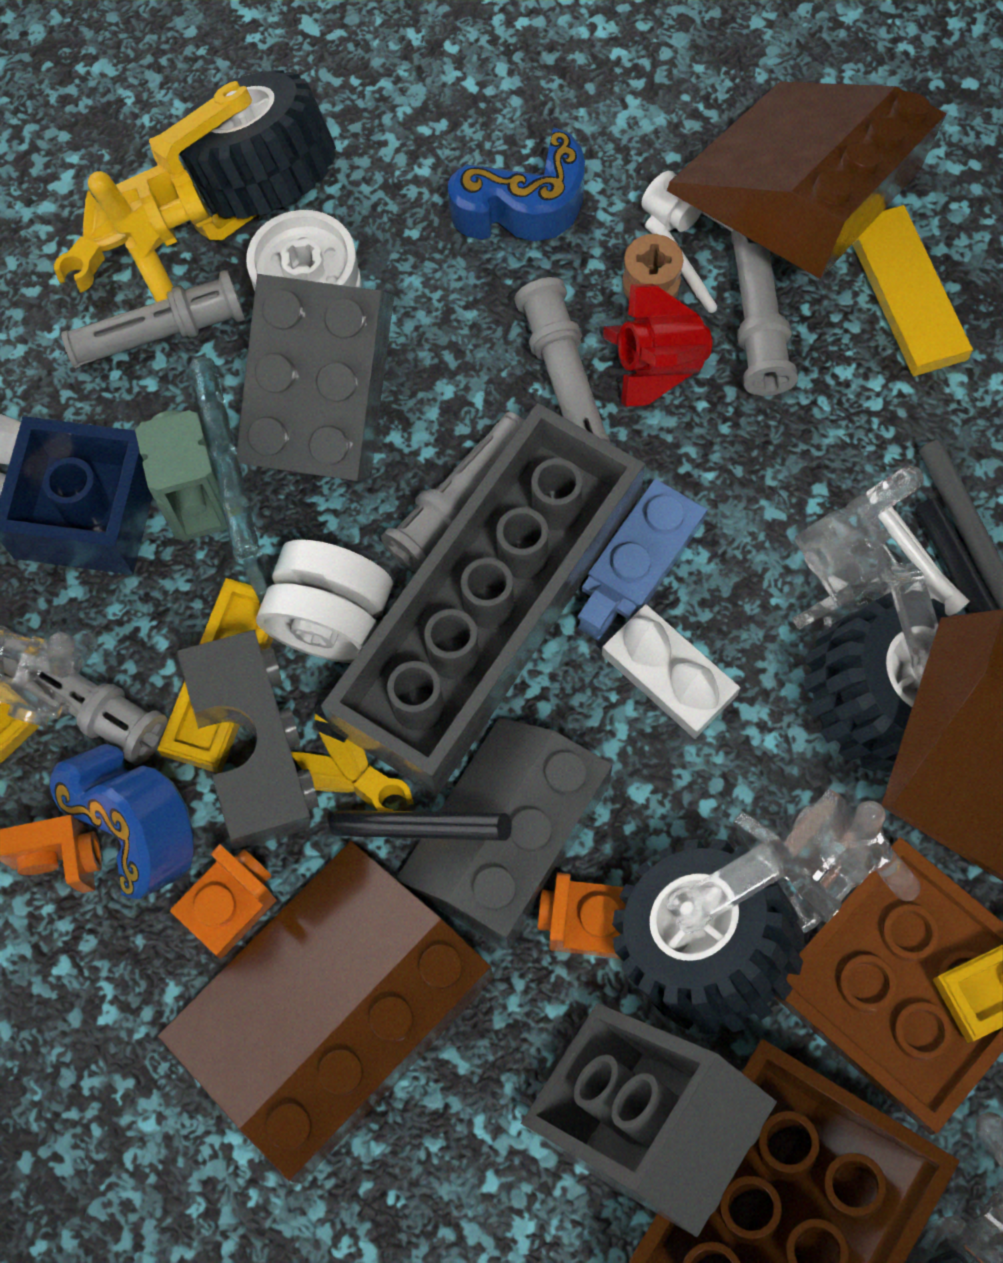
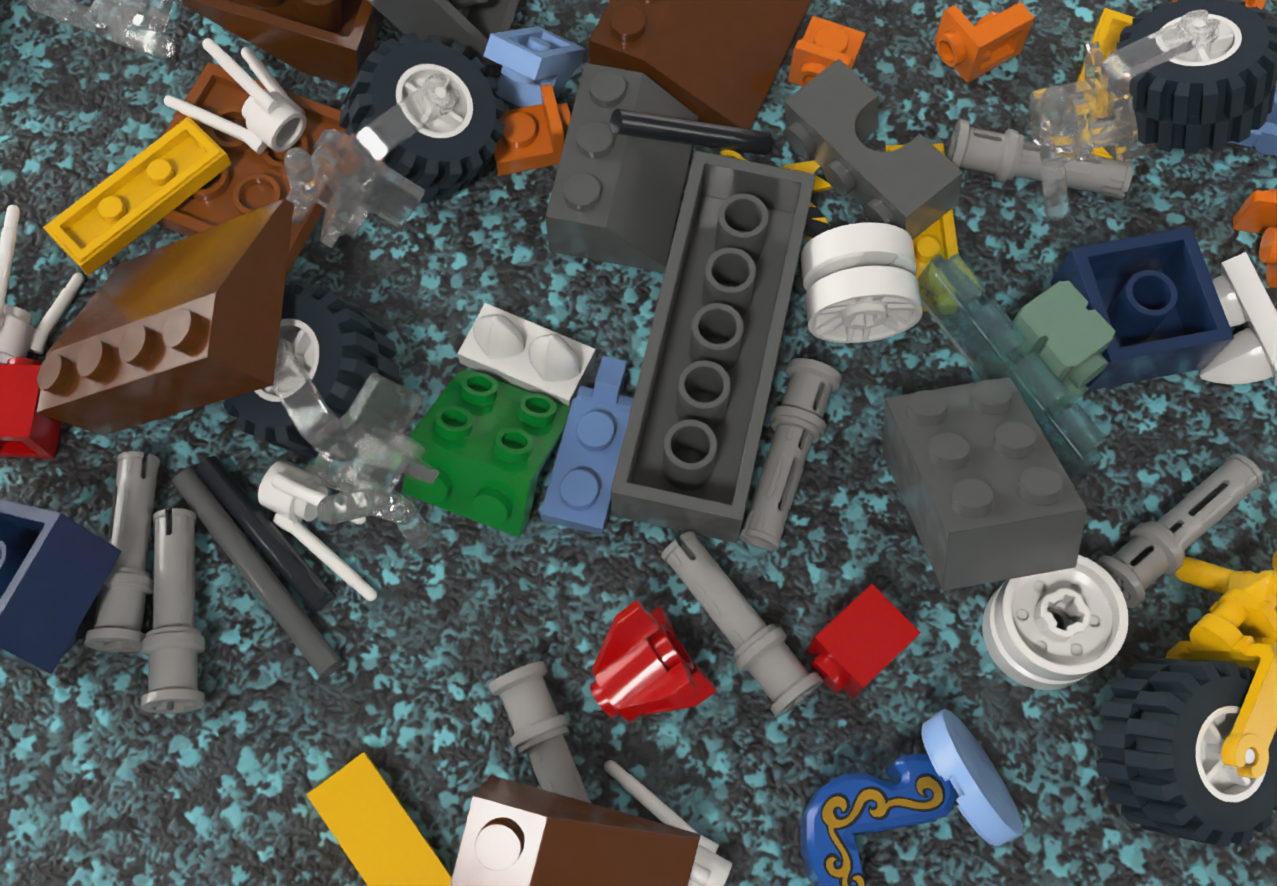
camera: 155 degrees right, 0 degrees up
(133, 806) = (940, 71): blue animal -> none
(434, 182) = (981, 790): none -> light blue tile
(471, 314) = (860, 642): none -> red brick
(551, 999) = (530, 60): none -> light blue slope
(653, 251) = (680, 785): medium nougat wheel -> none
(733, 587) = (488, 449): none -> green bracket
(887, 1001) = (269, 115): none -> white plant

